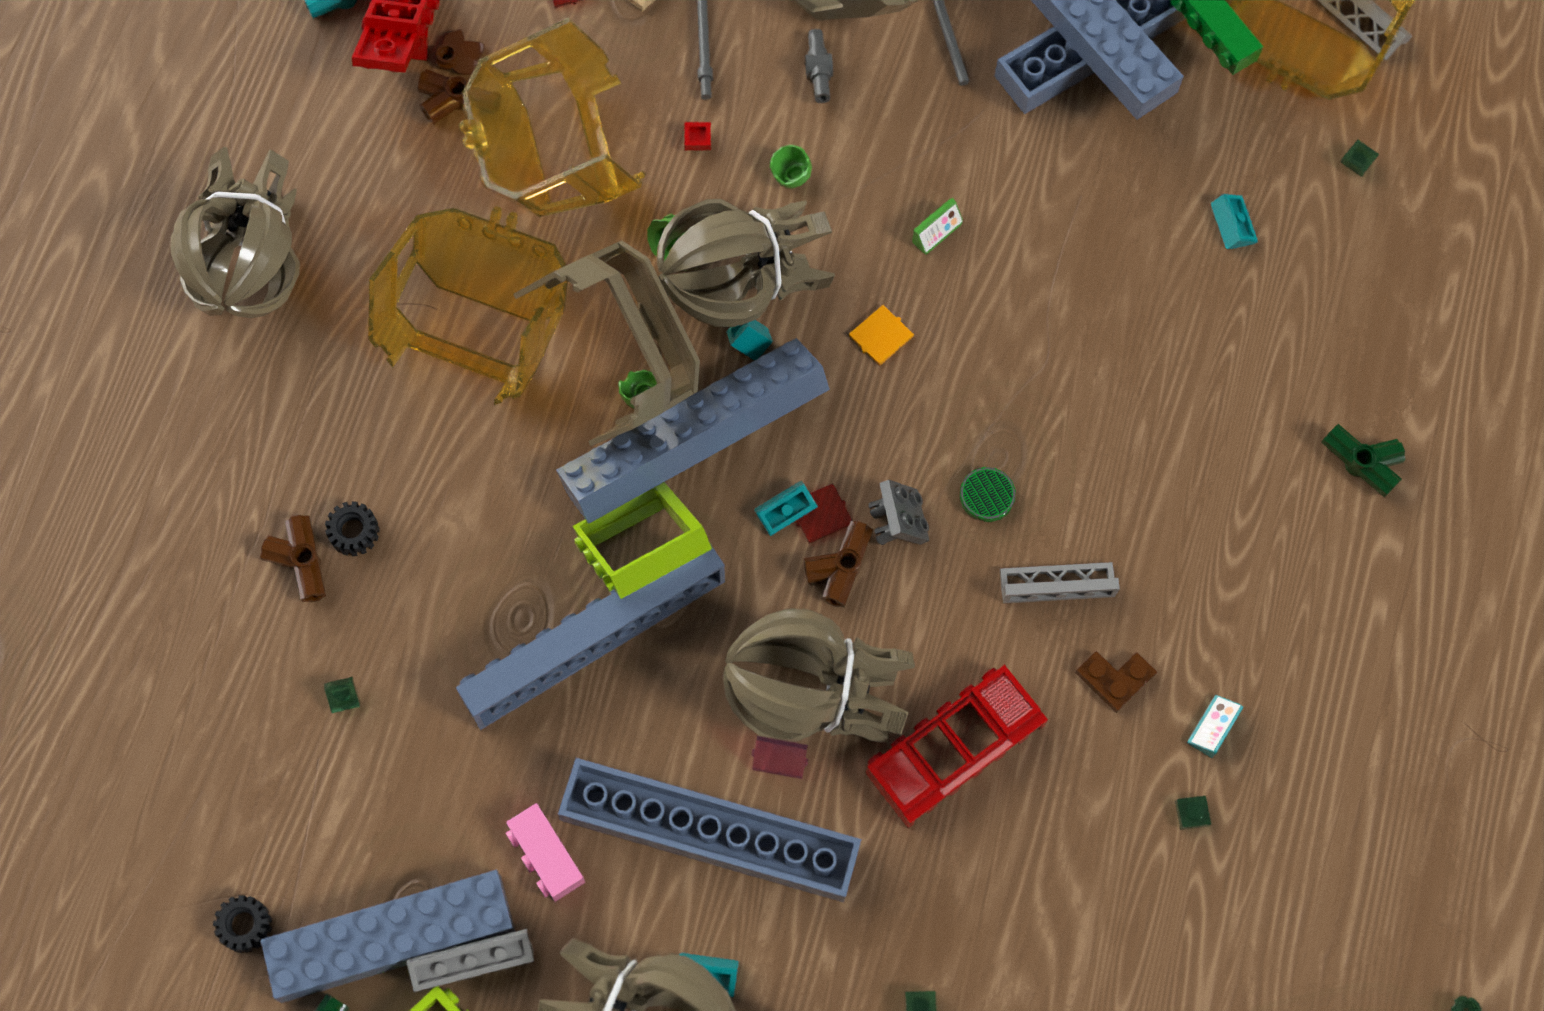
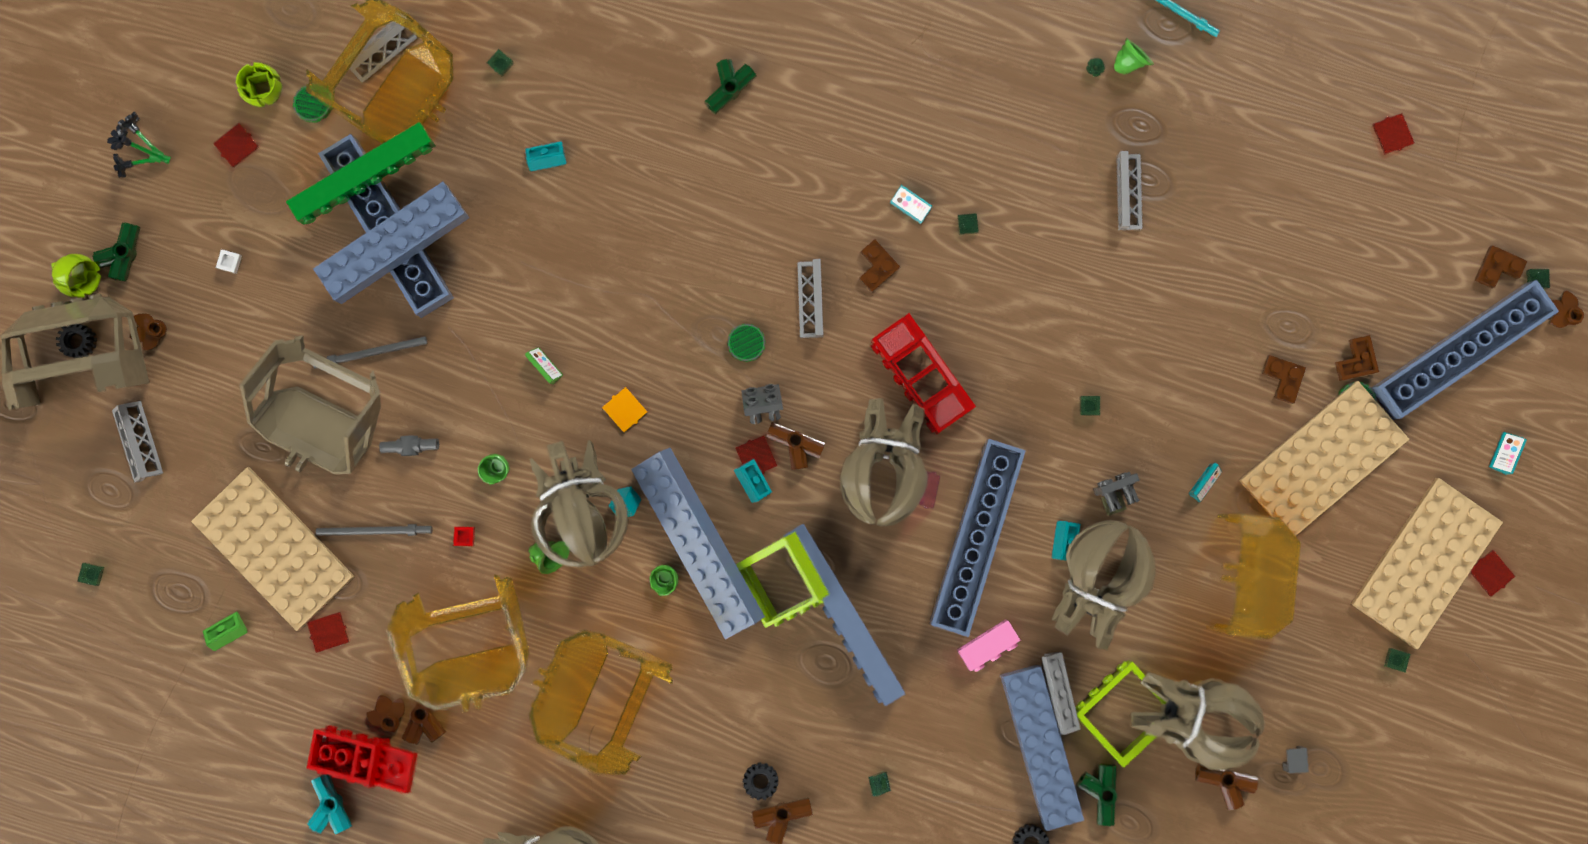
camera: 85 degrees left, 15 degrees up
(649, 320) = (608, 614): dark tan windscreen -> none

